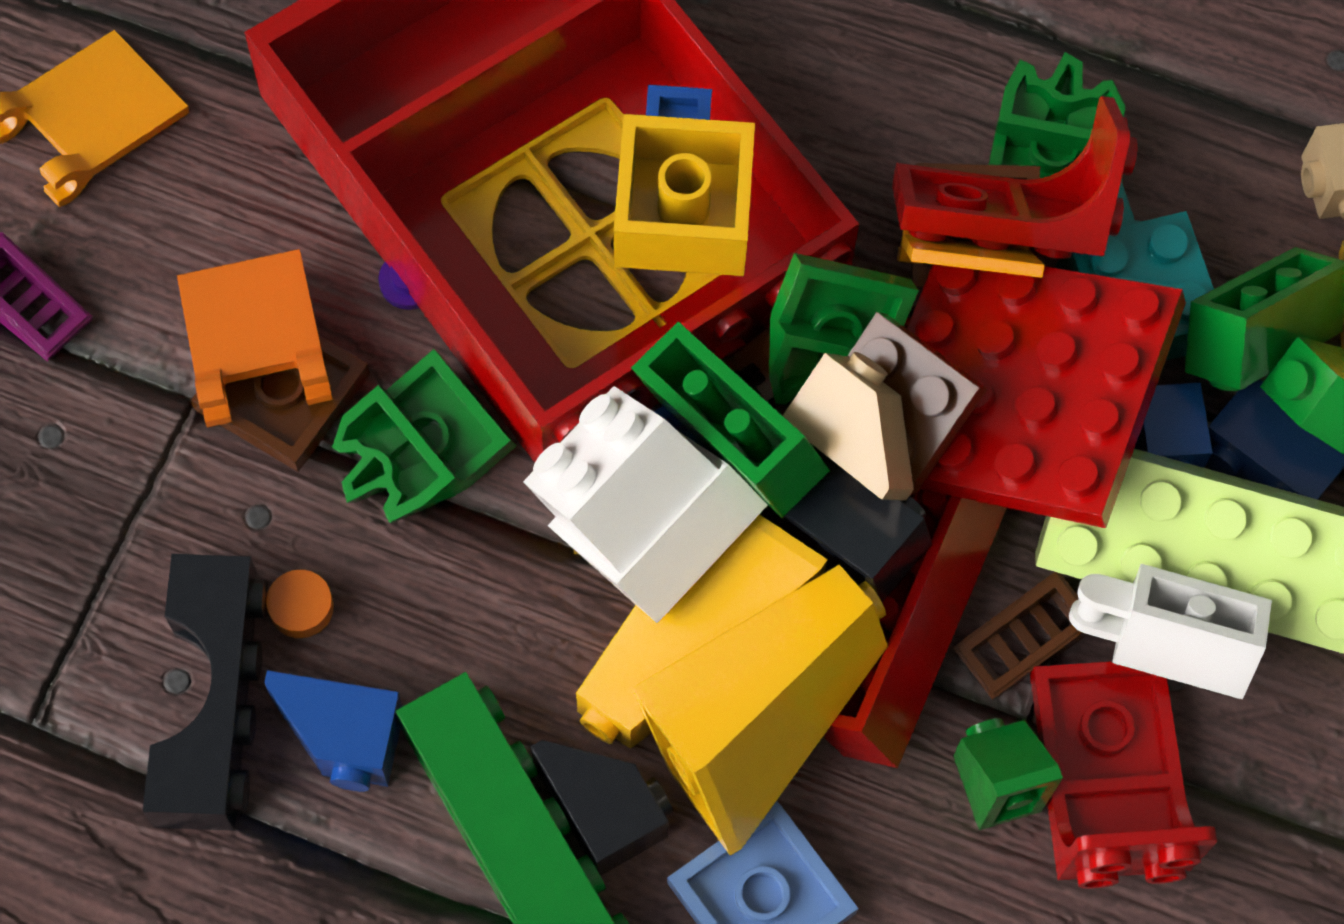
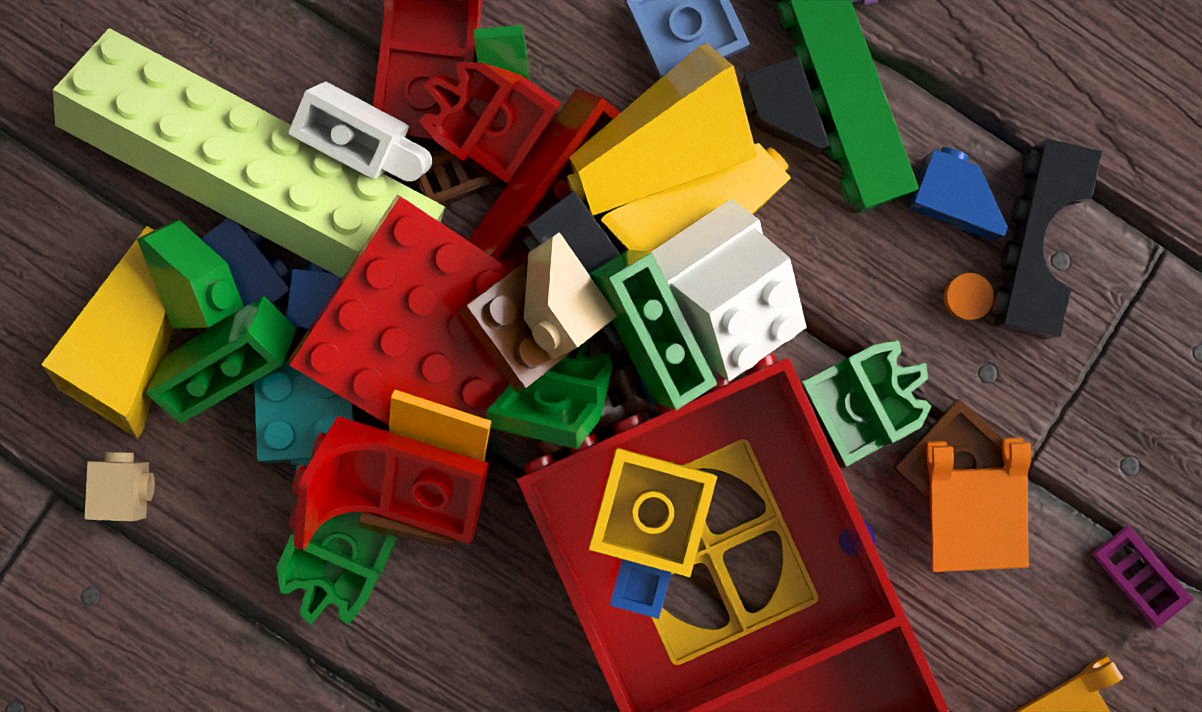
camera: 170 degrees left, 20 degrees up
(1010, 691) = (488, 116): none -> red plate

